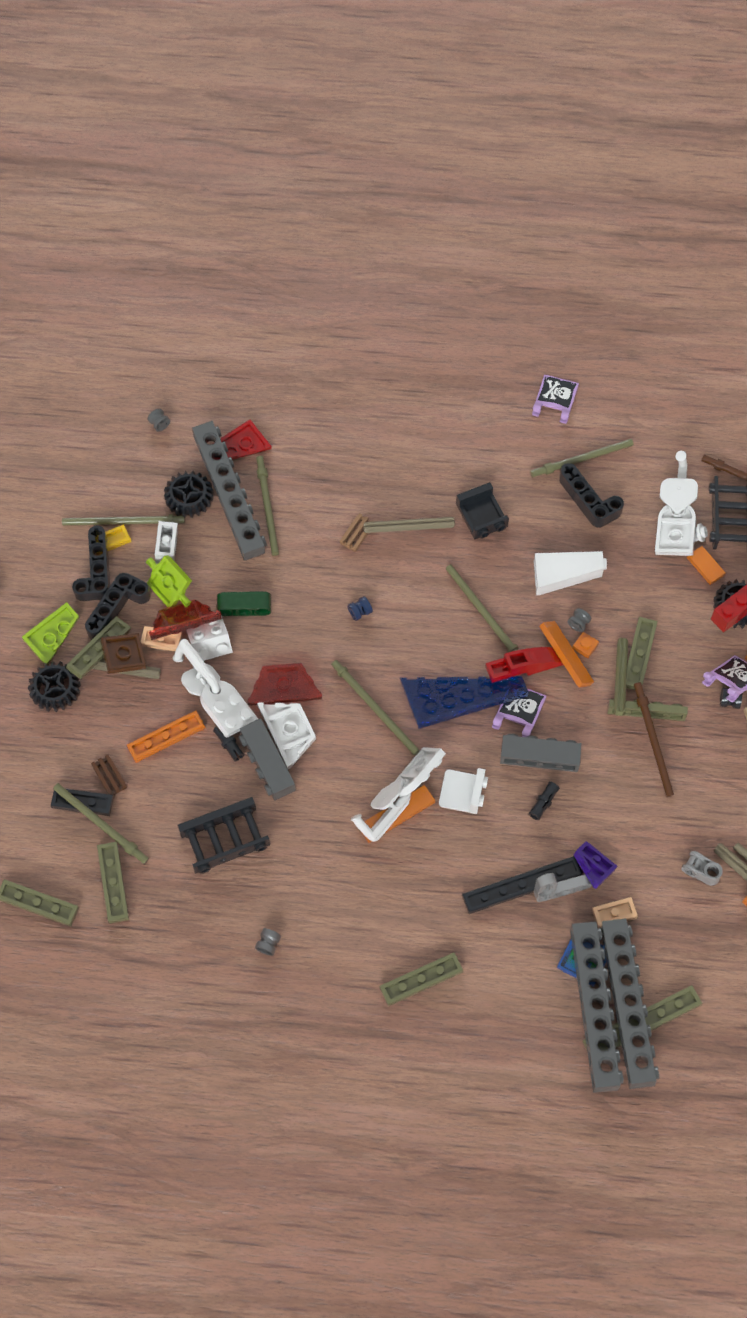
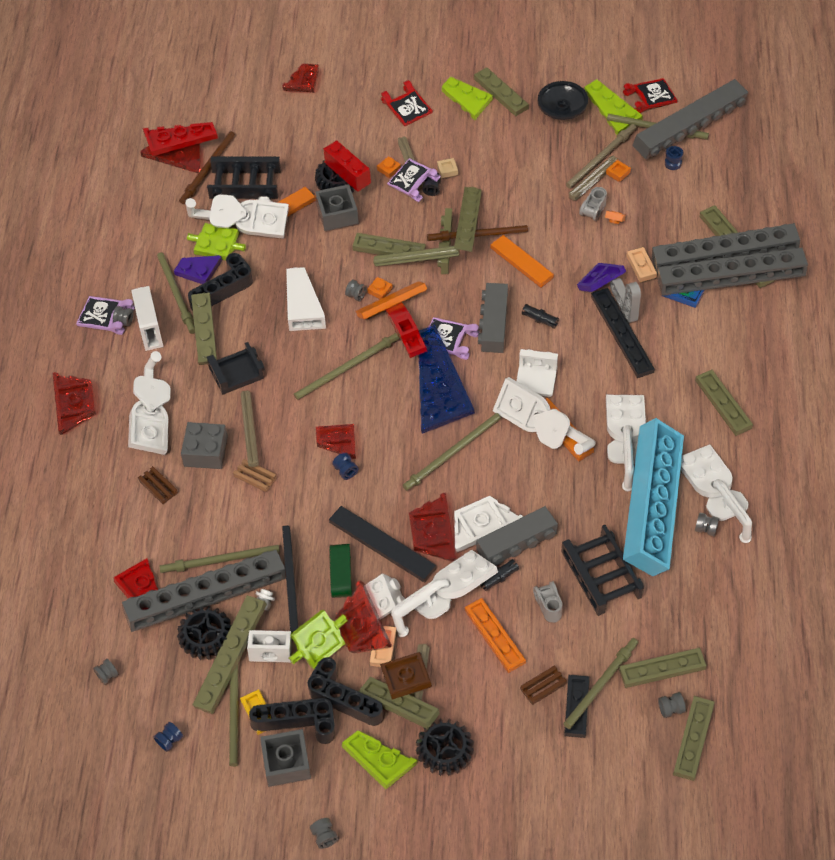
camera: 90 degrees left, 10 degrees down
(56, 557) = (285, 758): none -> dark grey brick
(71, 885) = (671, 705): none -> dark grey wheel
(91, 469) = (168, 736): none -> dark blue wheel
(163, 512) = (229, 655): none -> olive plate
(195, 784) = (548, 598): none -> light grey piece
(221, 542) = (266, 596): none -> white plate
(234, 561) = (293, 618): none -> black tile
(272, 641) = (382, 544): none -> black tile
(297, 888) = (653, 498): none -> medium azure brick
(335, 951) = (714, 480): none -> white plate
(357, 440) = (148, 475): none -> reddish brown tile
(389, 486) = (204, 445): none -> dark grey brick
(392, 603) = (337, 439): none -> clear red wing
(408, 874) = (623, 420): none -> white plate
(409, 437) = (147, 417): none -> white plate
(449, 377) = (73, 401): none -> clear red wing
(529, 480) = (203, 327): none -> olive plate
(544, 430) = (147, 318): none -> white slope
(549, 411) = (123, 315): none -> dark grey wheel
(613, 476) = (198, 268): none -> dark purple wing
(622, 787) = (522, 261): none -> orange tile
(645, 491) = (216, 241): none -> lime plate
(670, 728) = (468, 219): none -> olive plate
(685, 890) = (615, 217): none -> orange plate
(690, 600) = (336, 207): none -> dark grey brick

